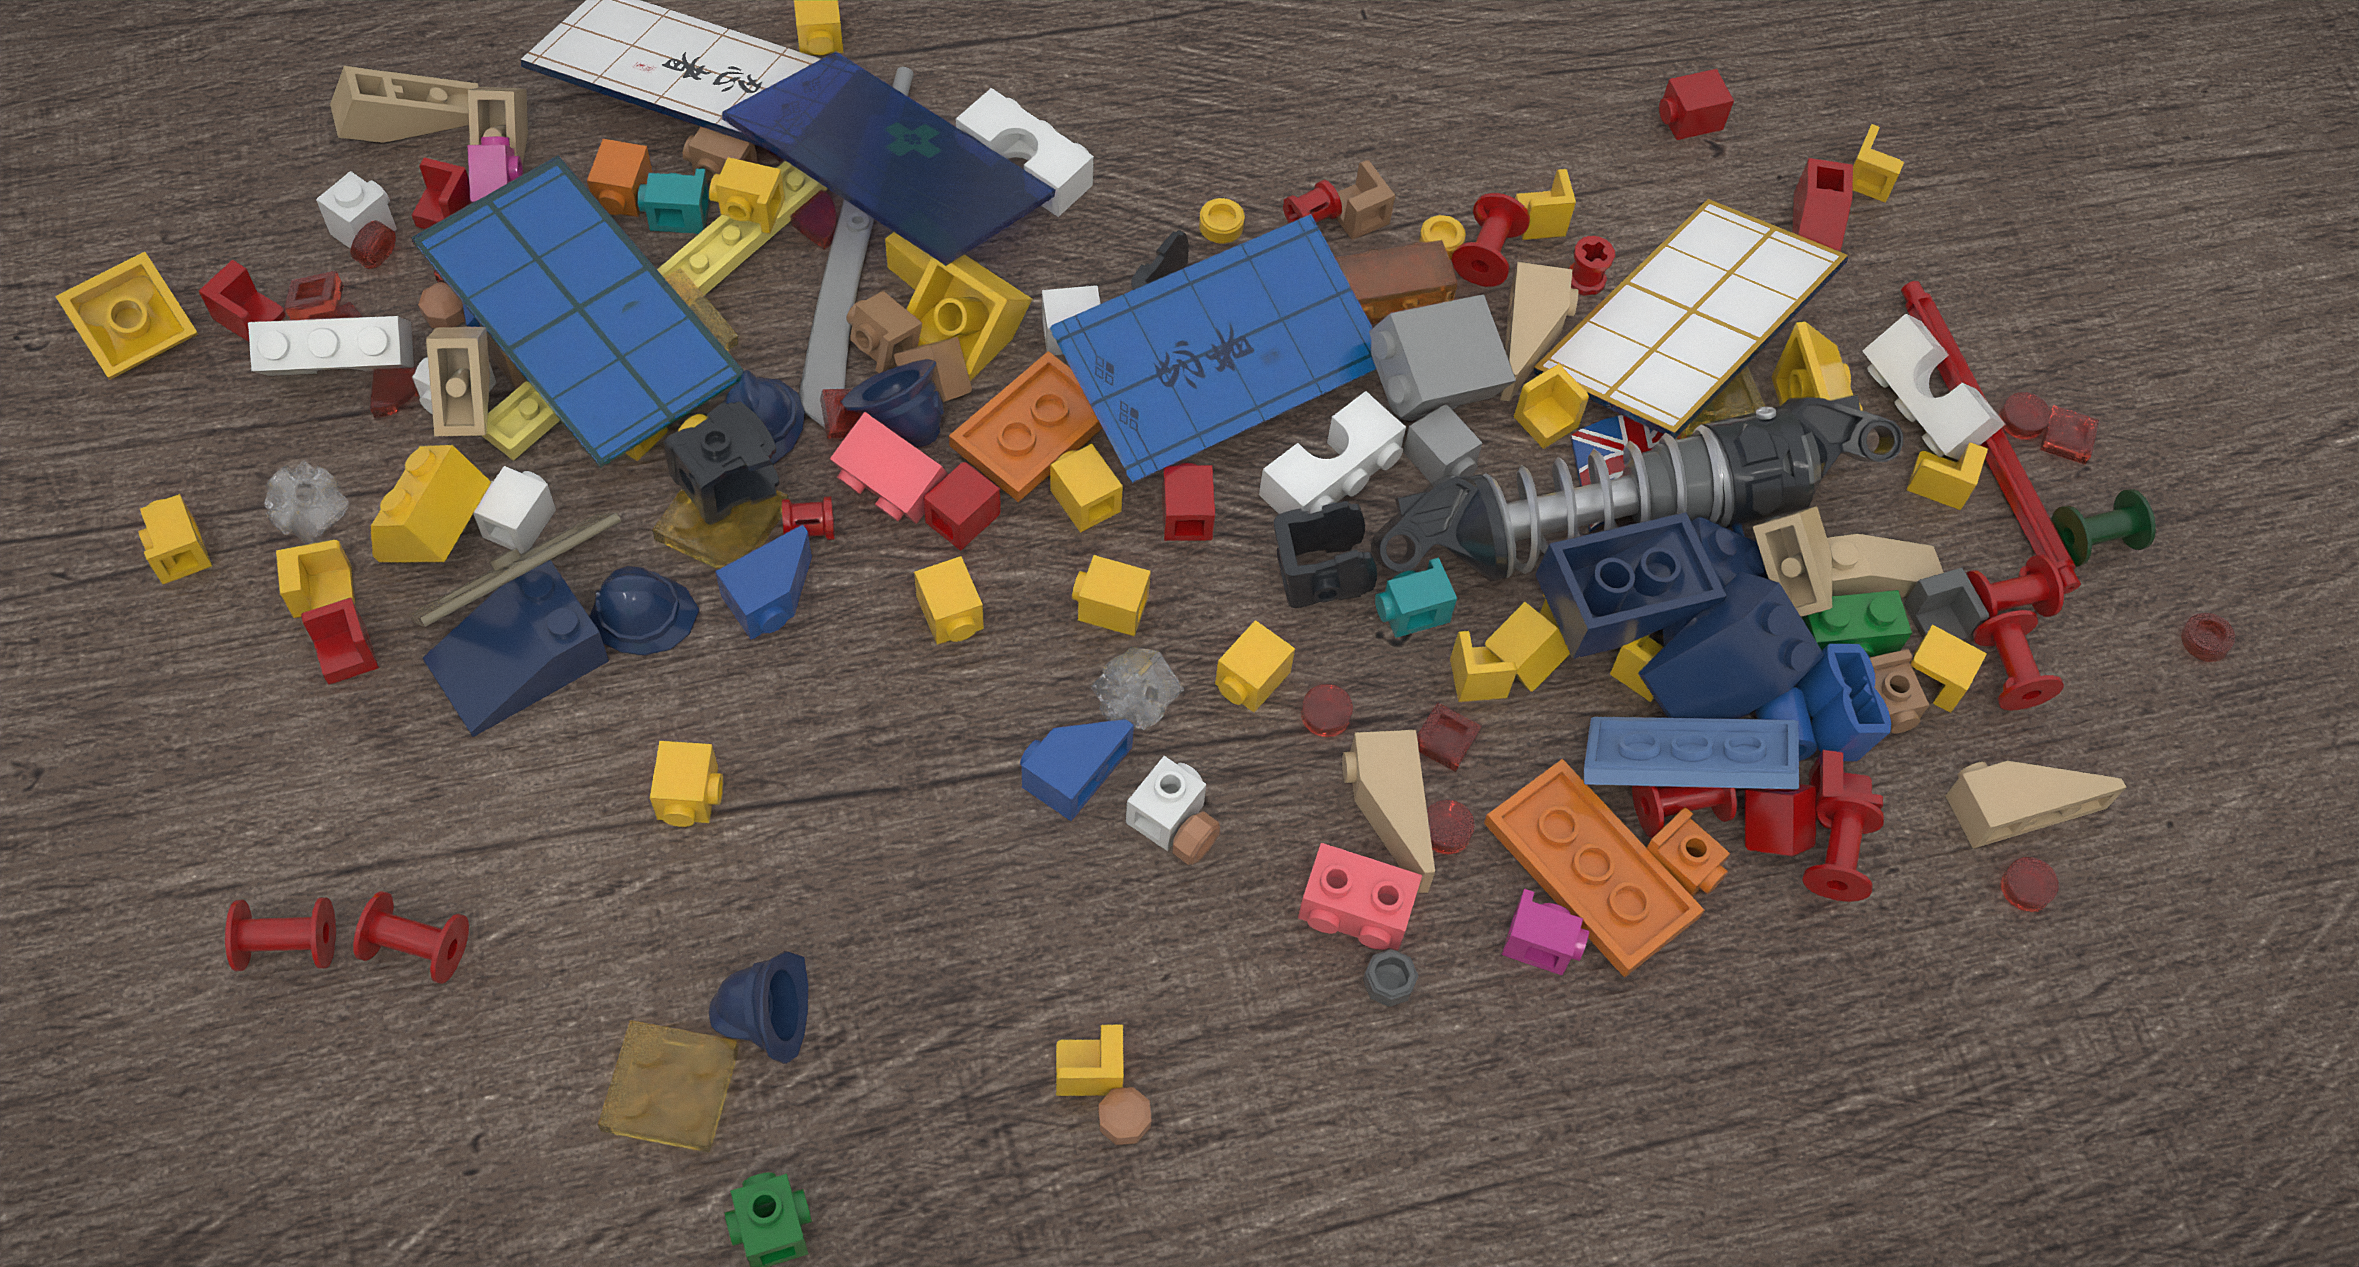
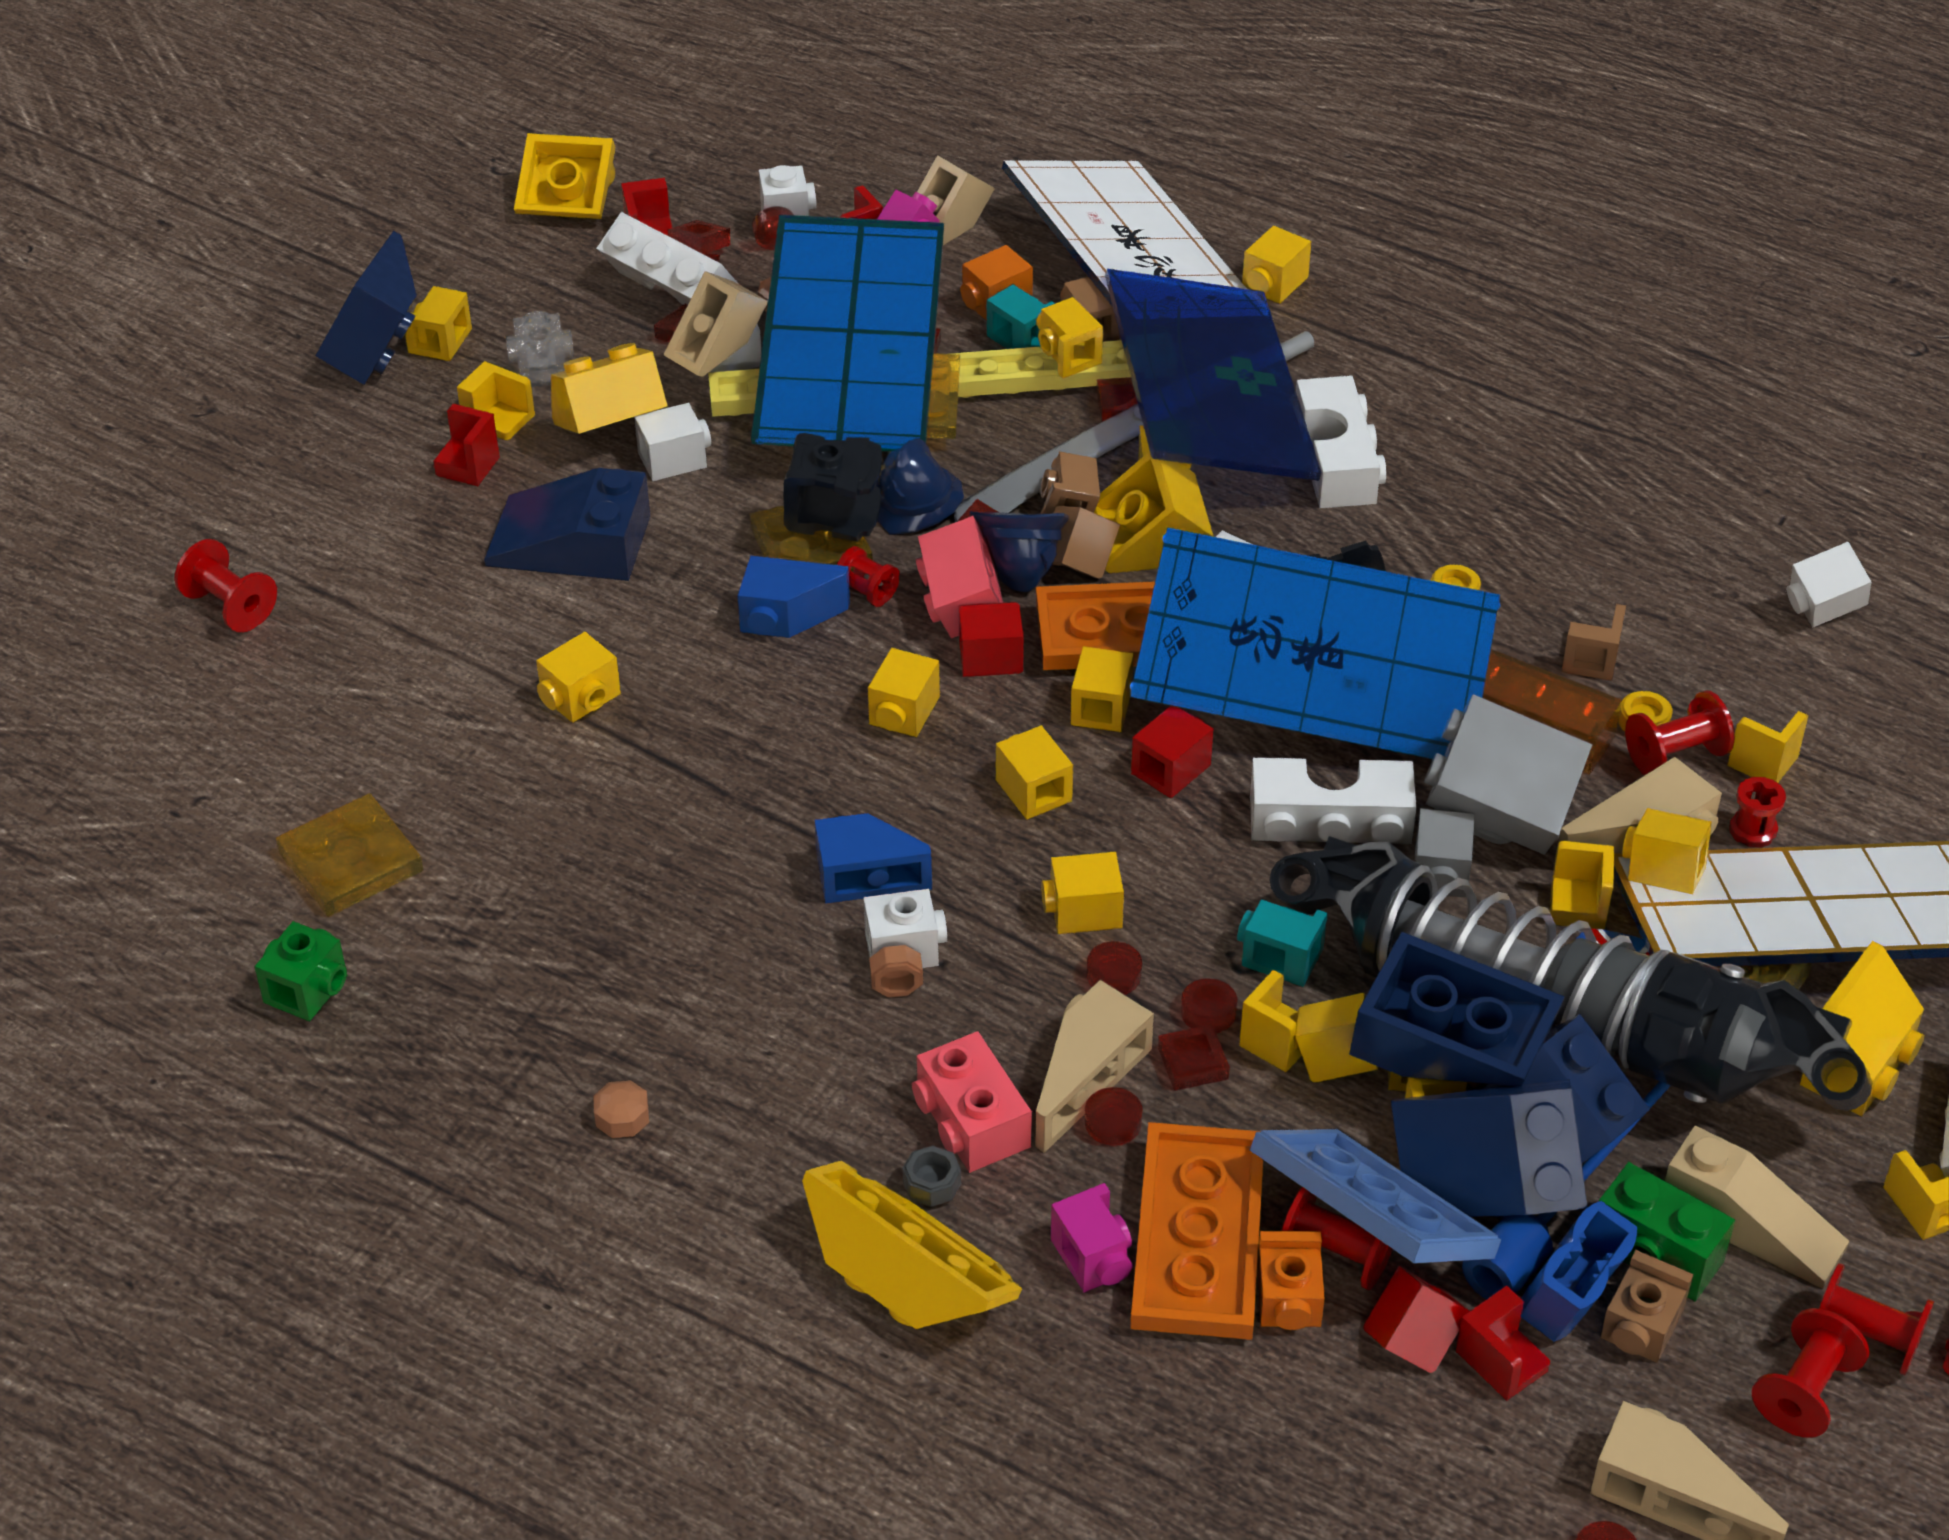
camera: 50 degrees right, 15 degrees down
(113, 572) = (372, 315): none -> dark blue slope
(381, 928) = (286, 623): red piece -> none
(396, 105) = (886, 147): tan slope -> none
(512, 565) = (661, 467): dark tan door -> none
(642, 611) = (683, 557): dark blue piece -> none
(765, 1005) = (465, 846): dark blue piece -> none
(1090, 1065) = (638, 1056): yellow panel -> none
(1136, 687) = (988, 842): clear brick -> none
(1319, 202) = (1529, 627): red bush -> none
(1333, 530) = (1235, 847): black piece -> none
(1414, 688) = (1209, 1003): none -> clear red tile
(1459, 1054) = (900, 1251): none -> yellow wedge
(1464, 51) = (1829, 585): none -> white brick
(1587, 340) = (1667, 850): none -> yellow brick
(1798, 558) = (1648, 1114): tan slope -> none
(1848, 821) = (1468, 1363): red piece -> none
(1947, 603) = (1788, 1284): dark grey panel -> none
(1948, 662) = (1731, 1327): yellow panel -> none

